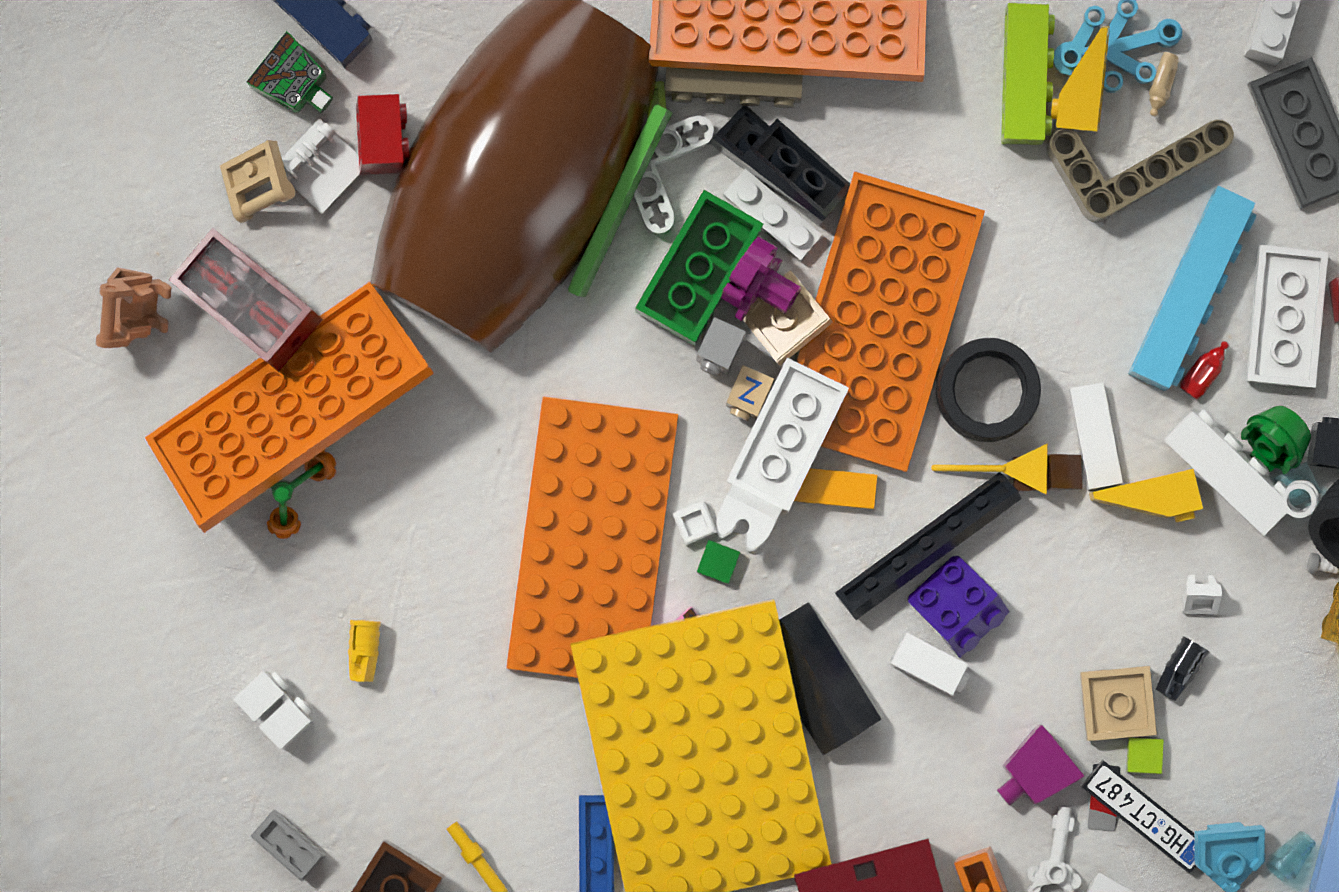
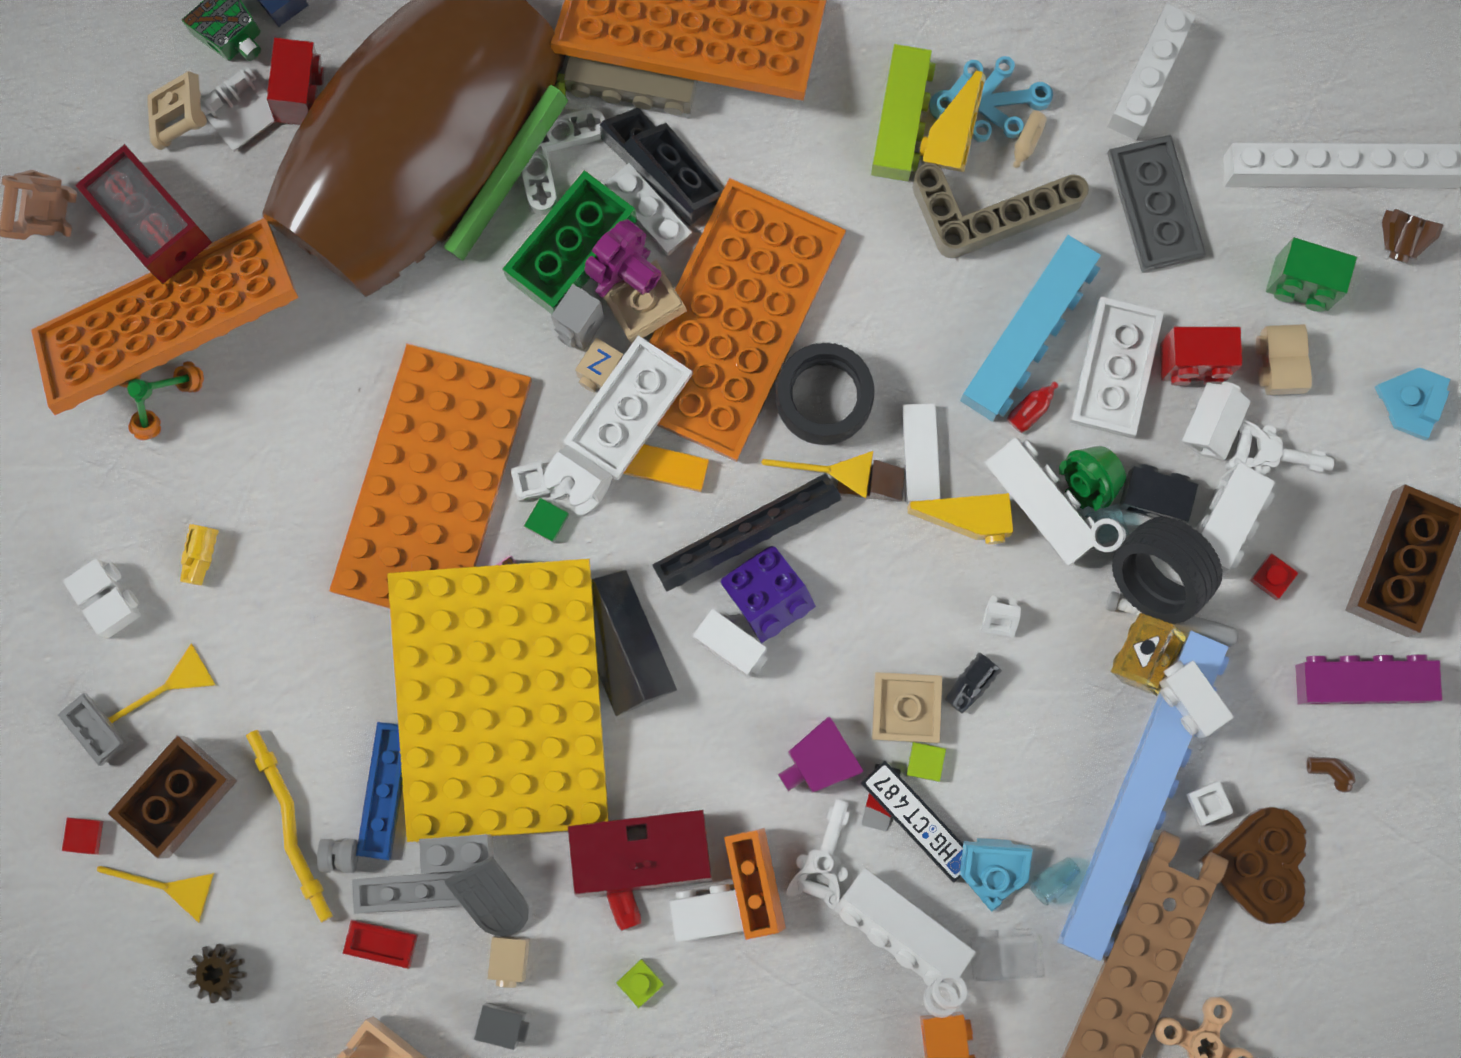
camera: 10 degrees right, 5 degrees down
(373, 774) = (188, 673): none -> yellow piece

